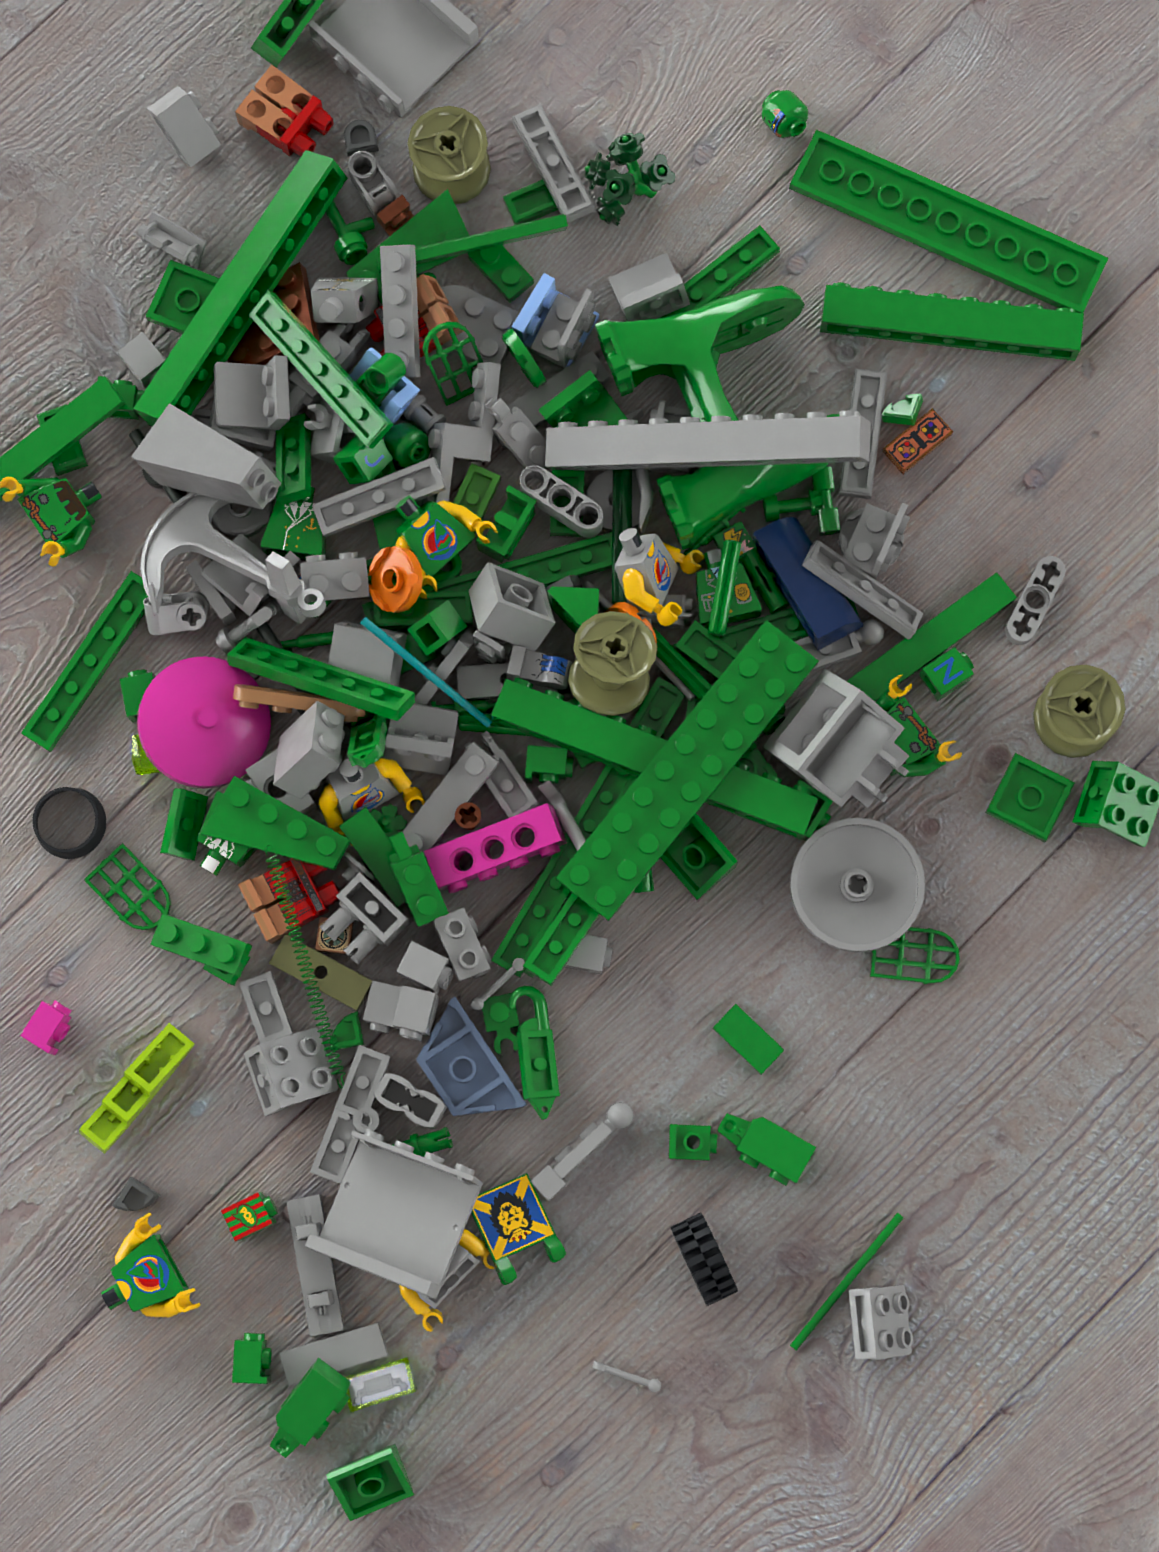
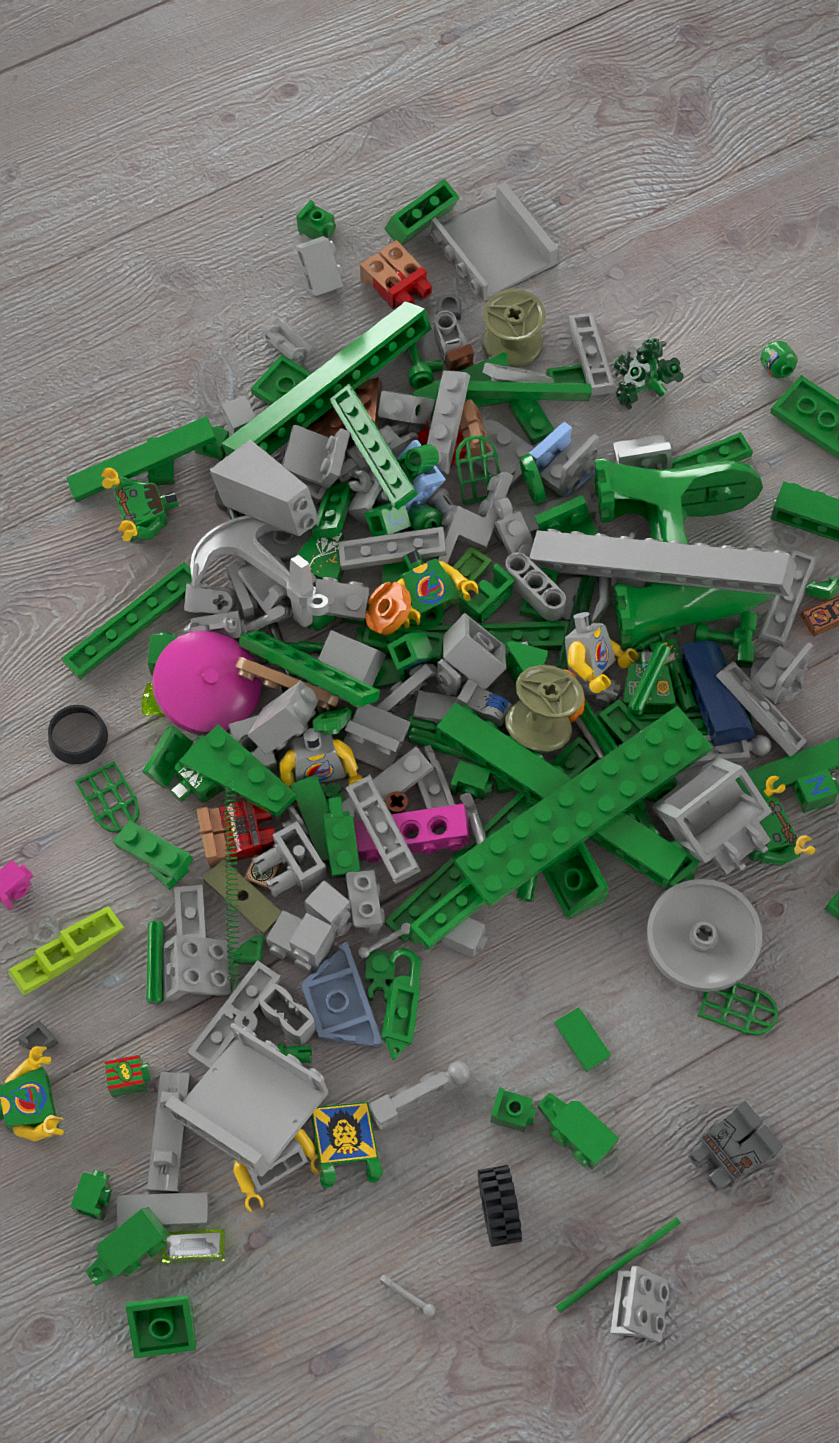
camera: 10 degrees right, 15 degrees down
(165, 69) = (315, 221): none -> green brick
(196, 643) = (223, 623): none -> light grey hinge
(241, 1073) = (155, 962): none -> green axle
(426, 672) = (393, 683): teal axle -> none
(461, 856) = (383, 829): none -> light grey plate
(471, 221) = (502, 373): none -> light grey hinge
(939, 1131) = (727, 1155): none -> dark grey hips

